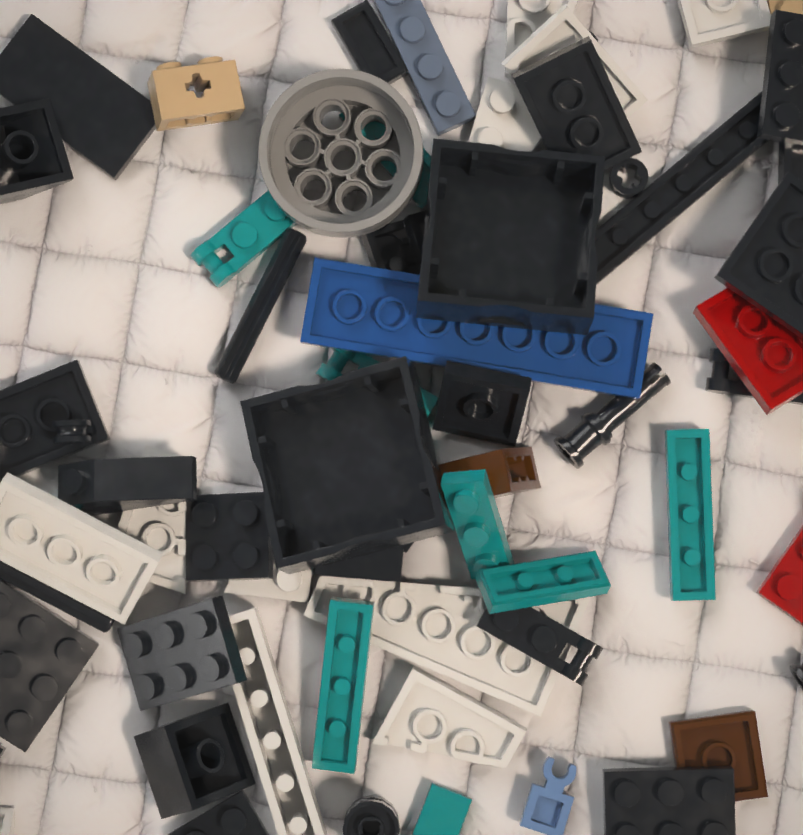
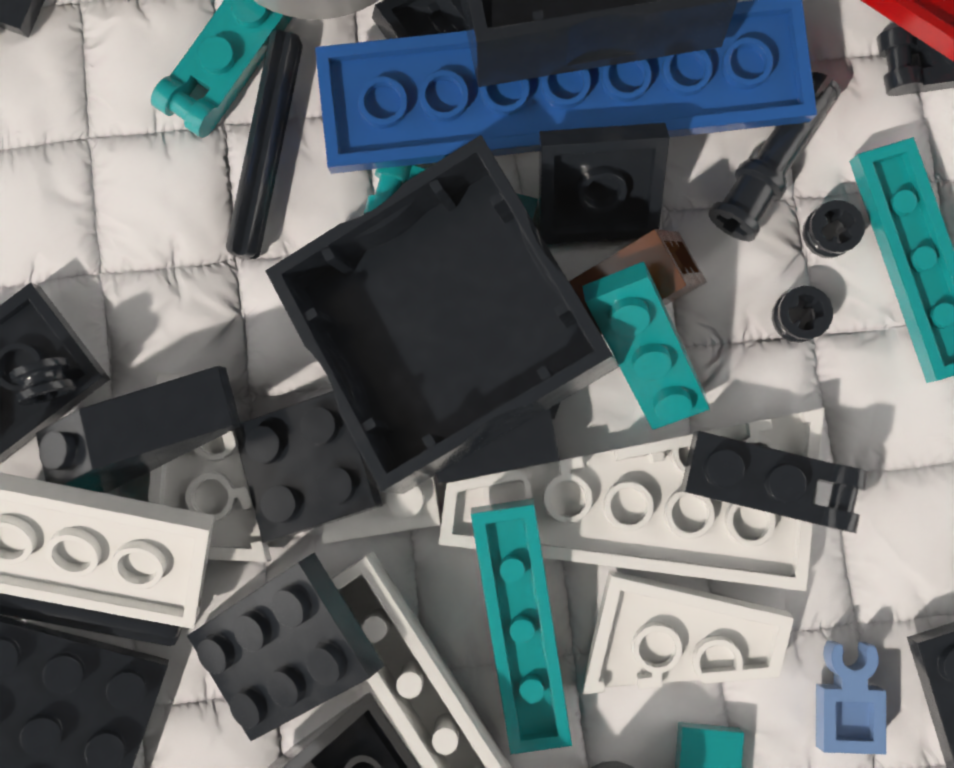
camera: 15 degrees left, 0 degrees up
(542, 582) = (754, 406): teal tile -> none
(591, 518) = (814, 298): none -> black bush
(648, 483) = (849, 238): none -> black bush

